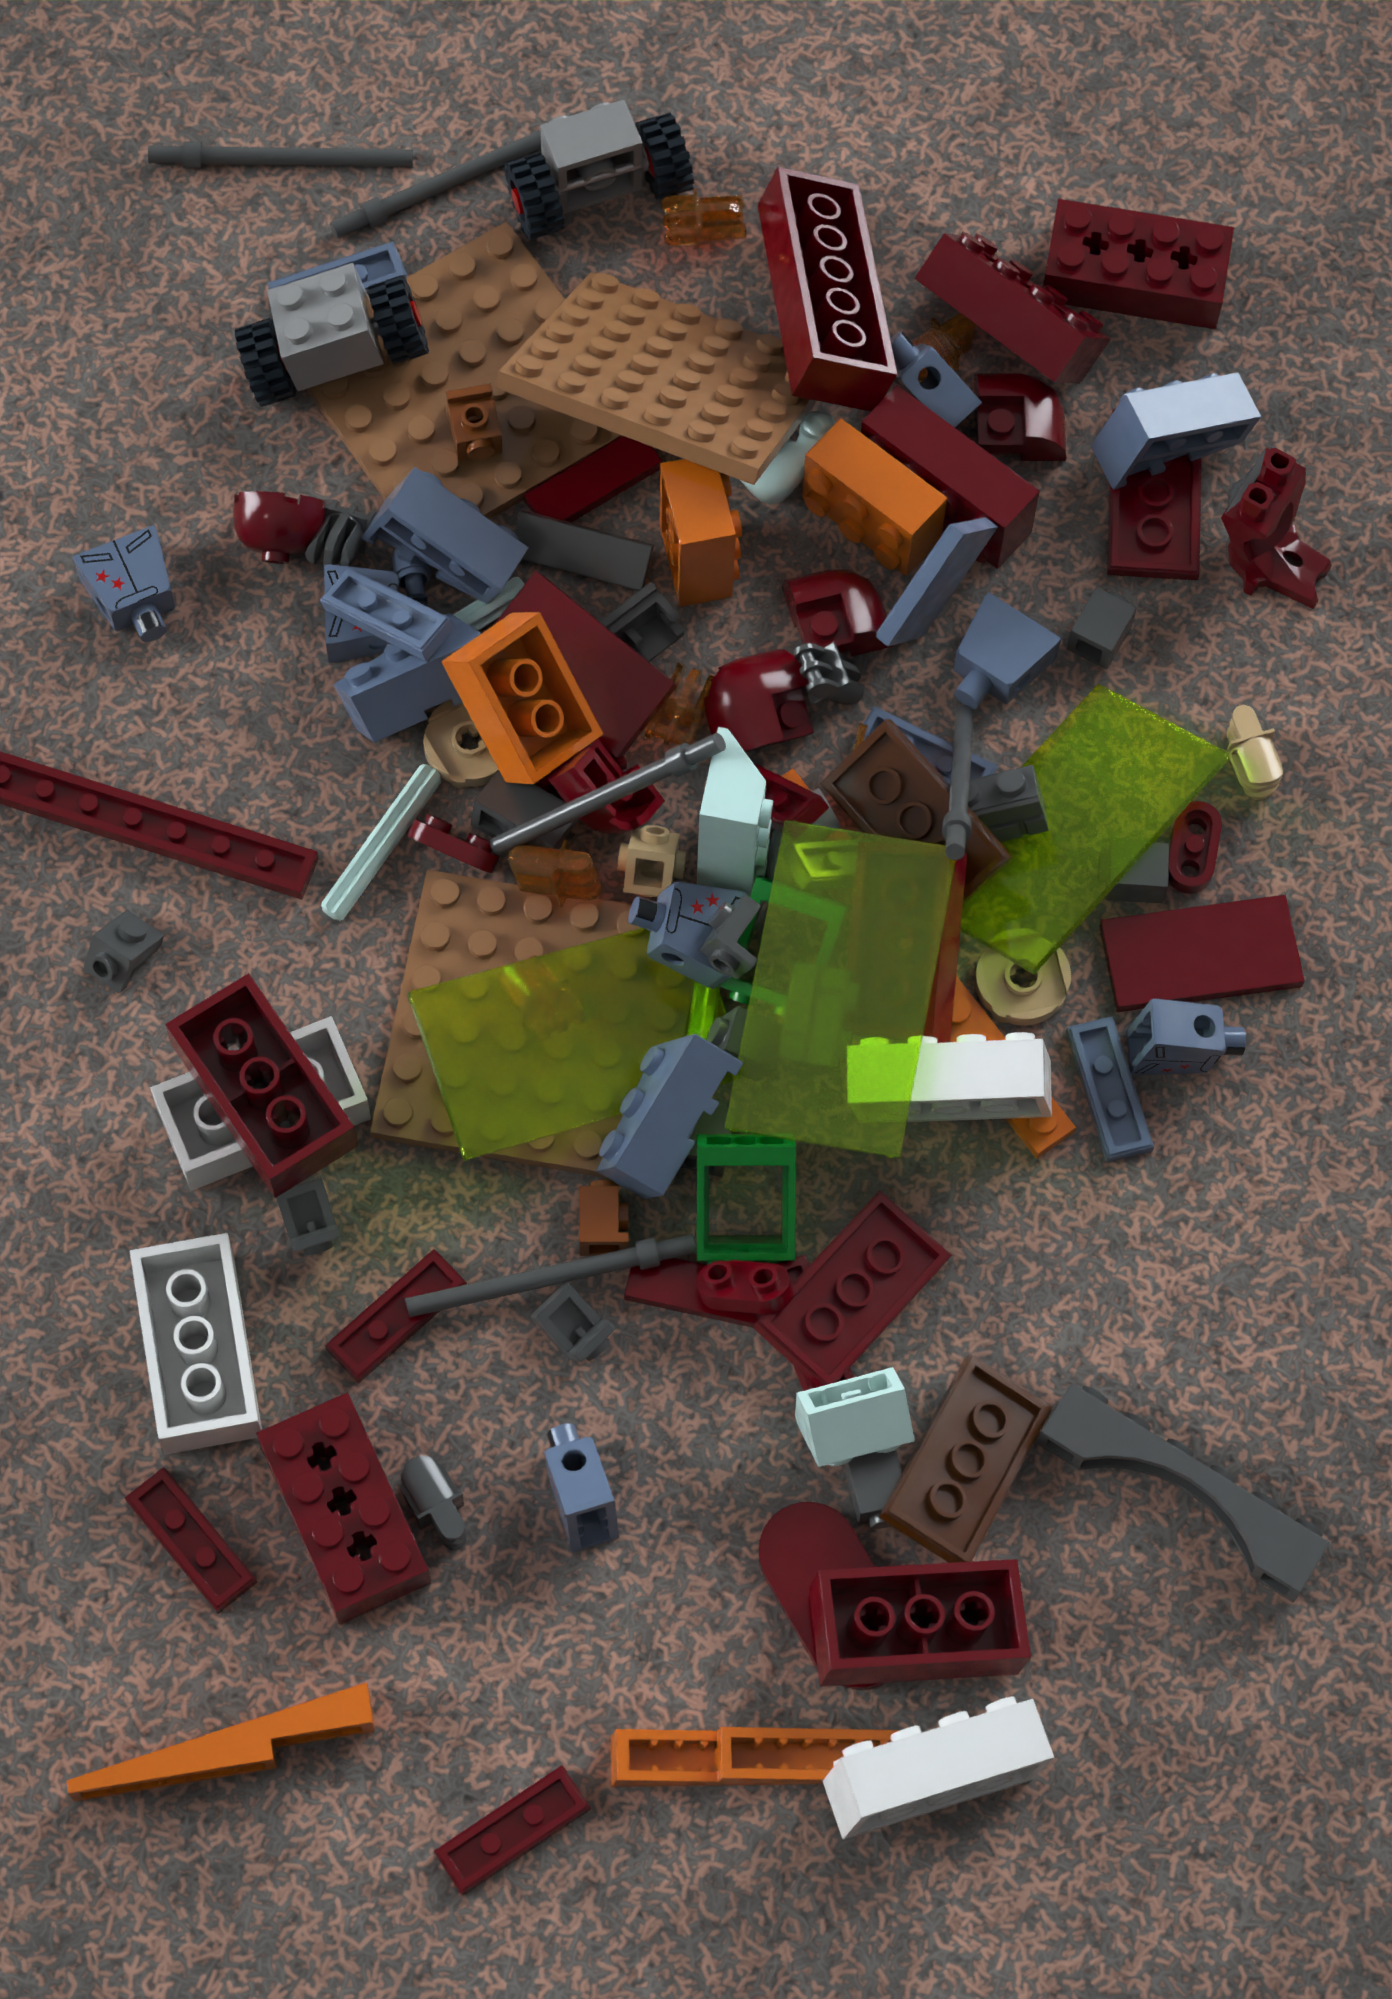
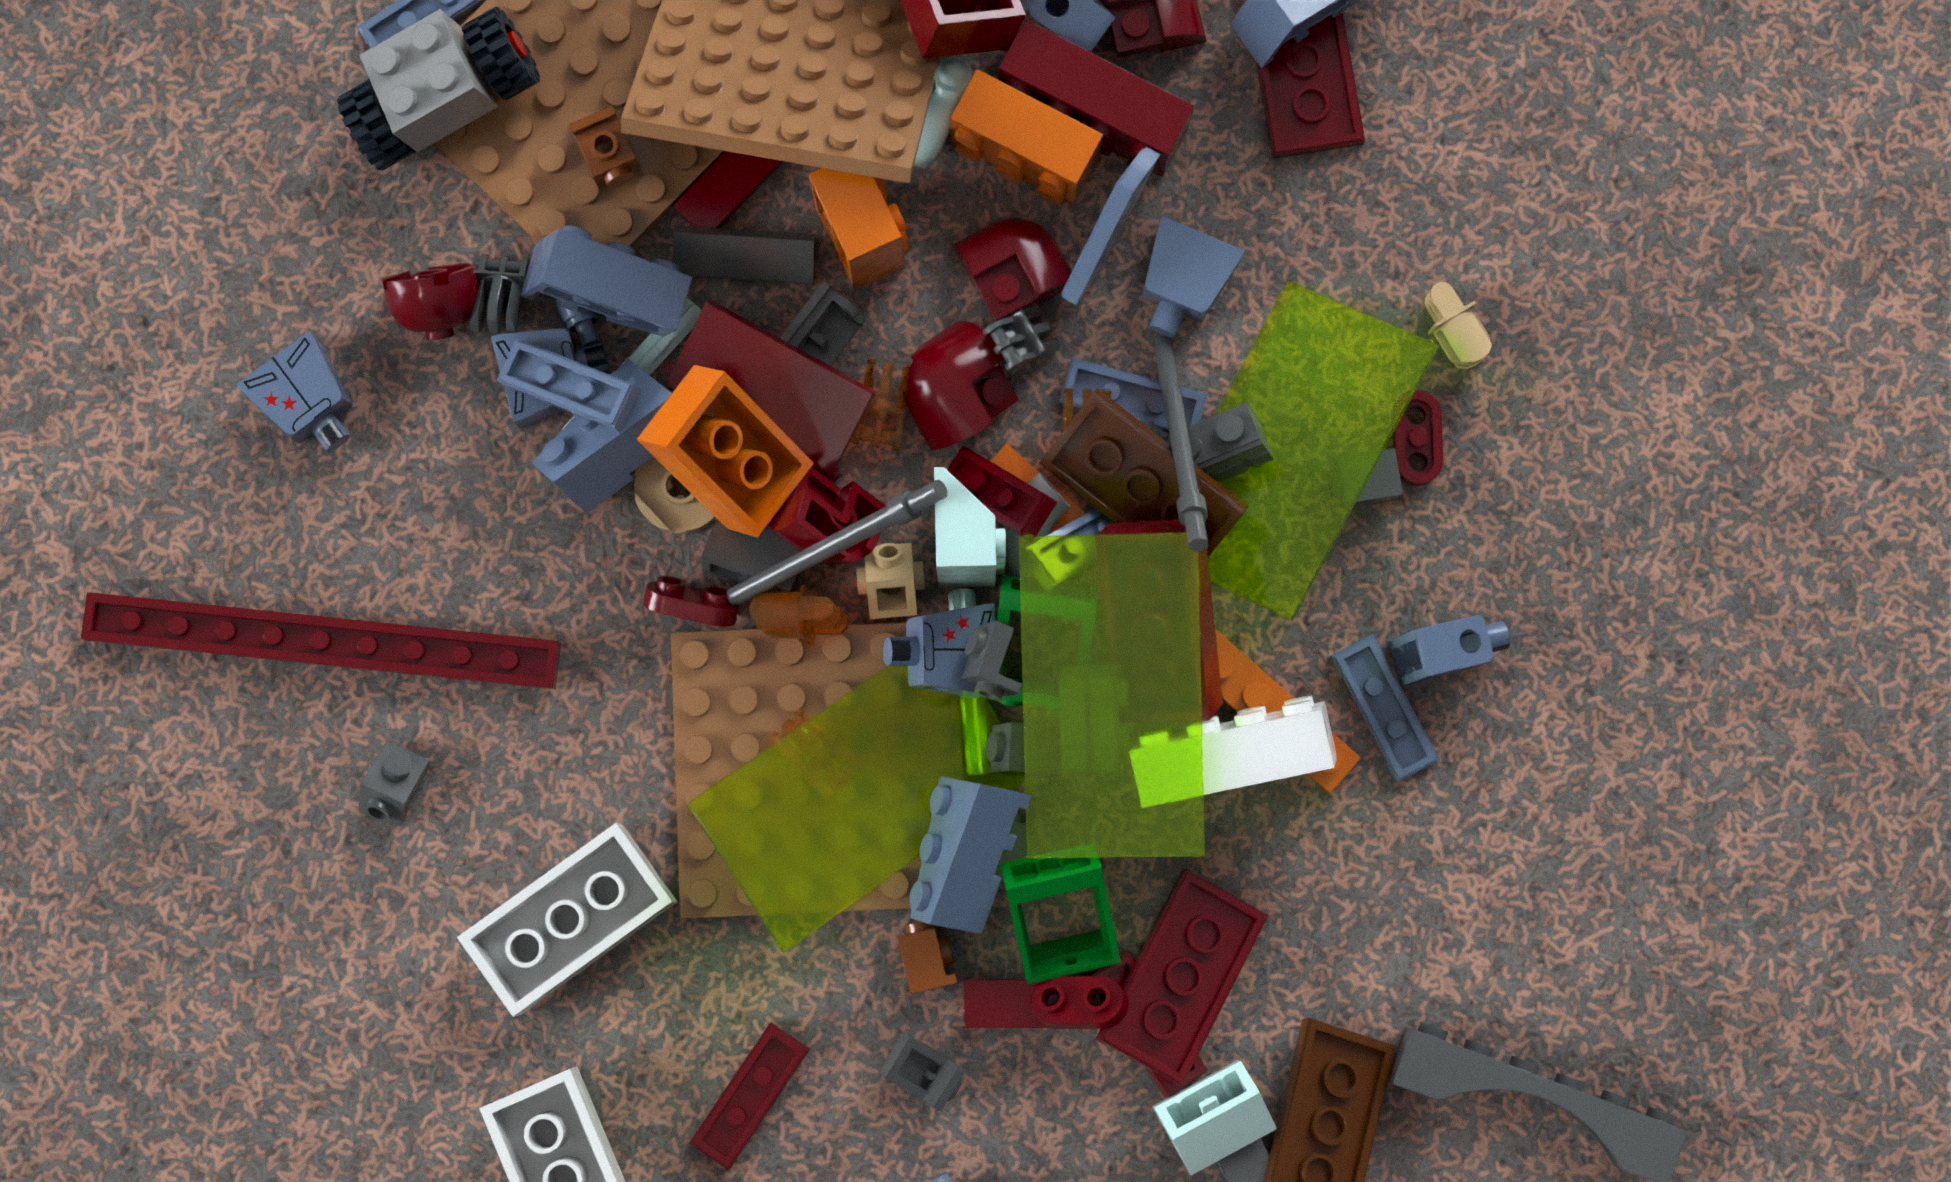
camera: 10 degrees left, 15 degrees up
(269, 1056) = (533, 923): dark red brick -> none
(308, 1217) = (642, 1020): dark grey bracket -> none
(381, 842) = (619, 612): light aqua axle -> none
(645, 1255) = (975, 987): dark grey bar -> none
(1020, 1005) = (1275, 643): tan plate -> none
(1101, 627) = (1281, 222): dark grey brick -> none
(1202, 952) = (1445, 546): dark red tile -> none
(1263, 530) = (1423, 80): dark red hips -> none

